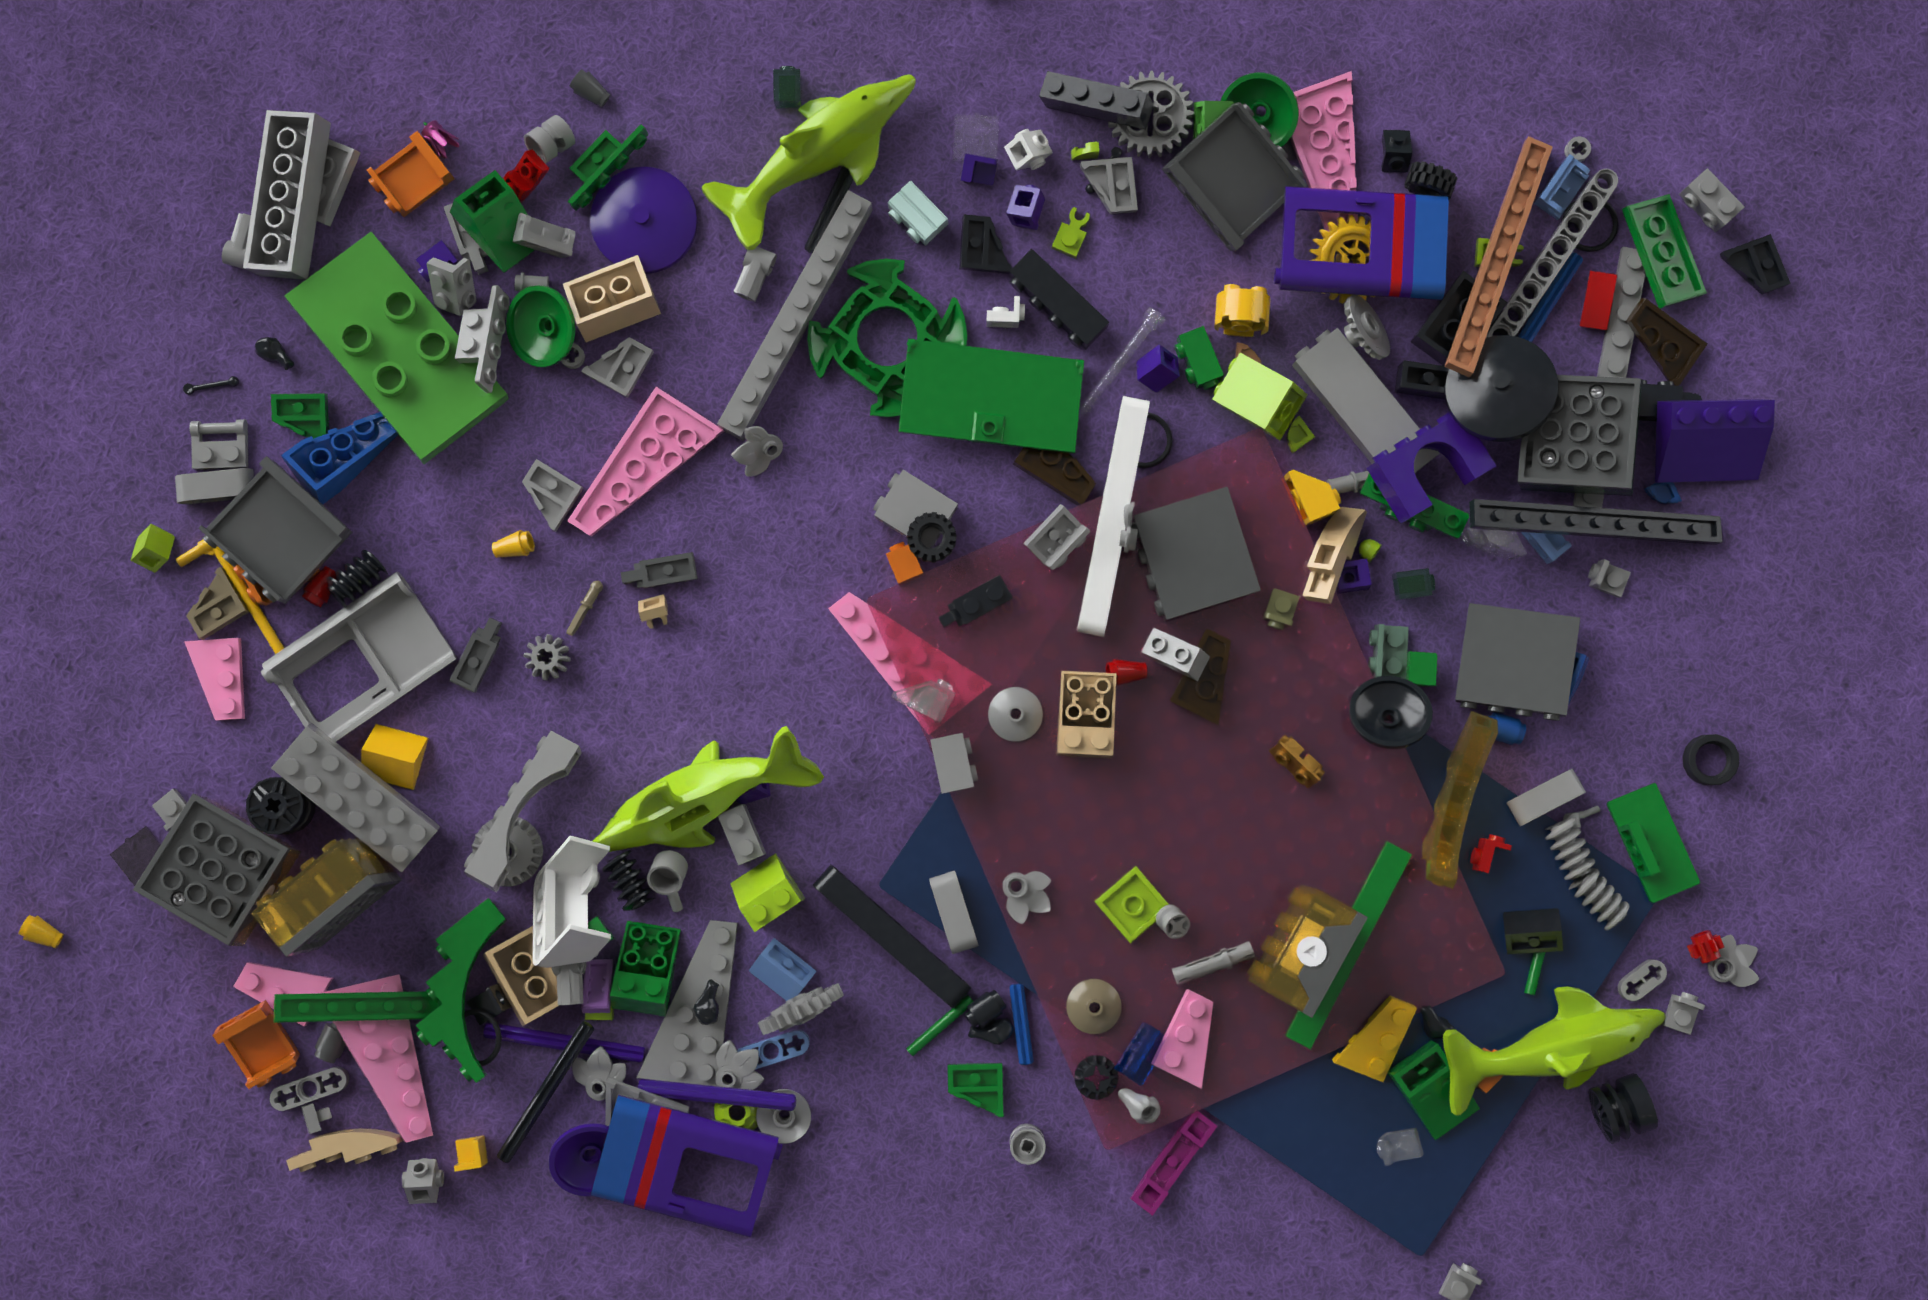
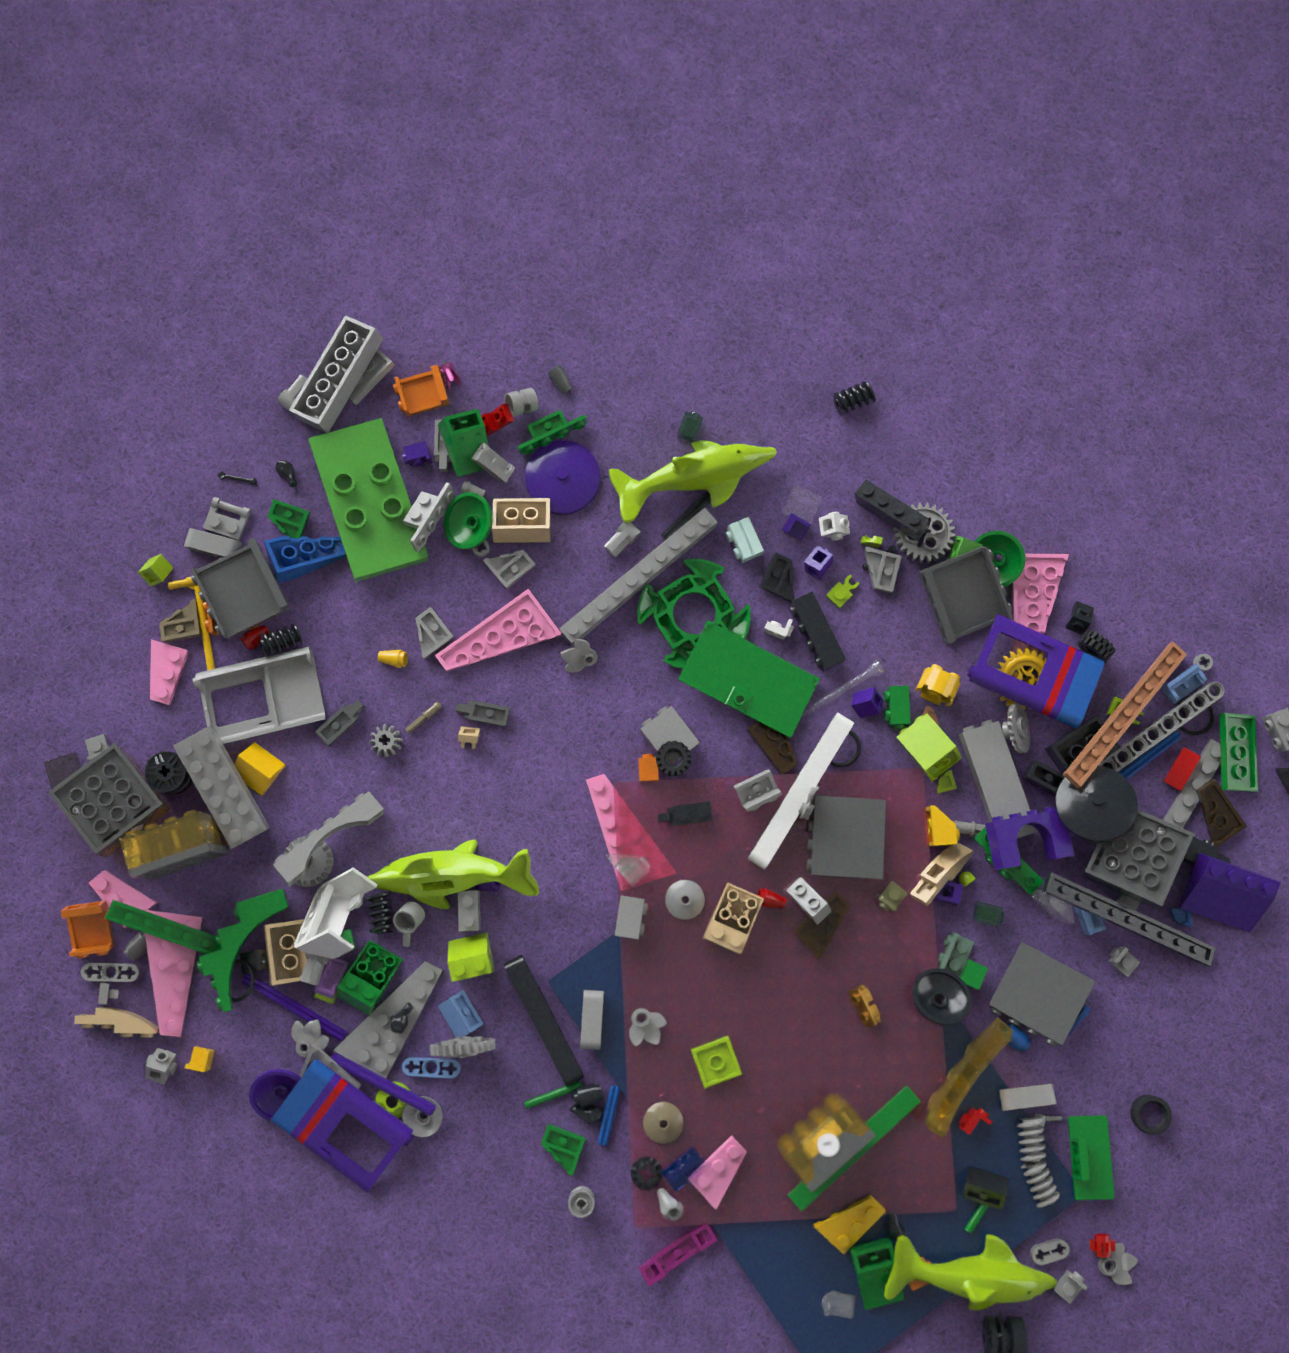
camera: 15 degrees right, 5 degrees down
(452, 285) = (420, 472): light grey bracket -> none
(545, 1092) = (268, 1036): black axle -> none
(739, 1065) = (406, 1070): light grey plate -> none
(1173, 928) = (739, 1084): light grey wheel -> none
(1224, 959) = (756, 1124): light grey pin -> none

